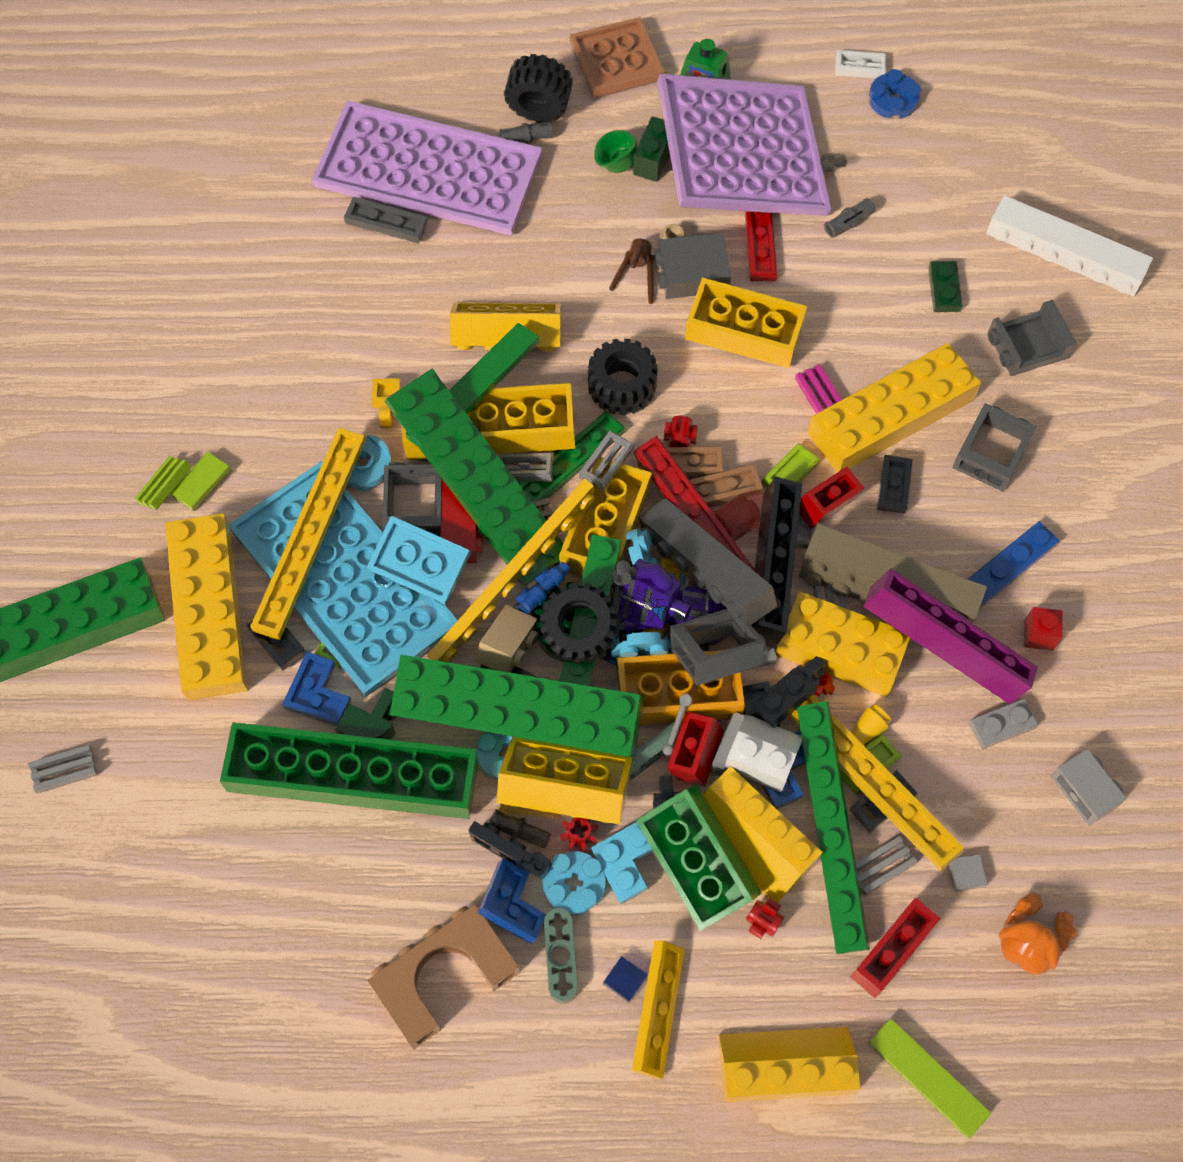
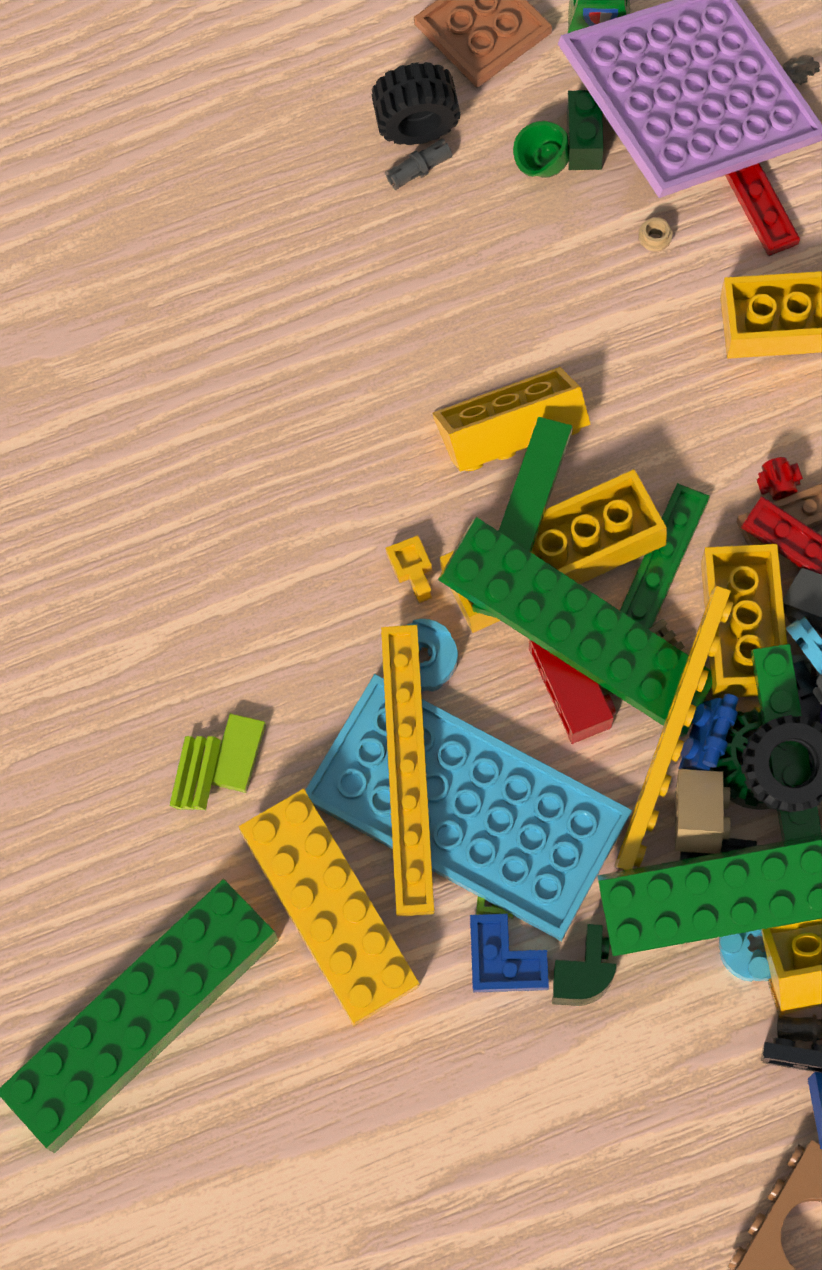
camera: 15 degrees left, 5 degrees up
(56, 759) = (222, 1190): light grey tile -> none
(282, 651) = (440, 927): black plate -> none
(350, 770) = (594, 1038): green brick -> none
(386, 220) = (302, 338): dark grey plate -> none
(412, 474) = (519, 714): dark grey window -> none
(418, 560) = (555, 755): medium azure plate -> none
(428, 167) = (321, 252): lavender plate -> none
(528, 472) = (618, 575): light grey tile -> none
(594, 478) = (715, 577): light grey tile -> none
(627, 358) = (685, 409): black tyre -> none
(638, 256) = (628, 274): reddish brown plant -> none
(689, 260) = (696, 261): dark grey brick -> none

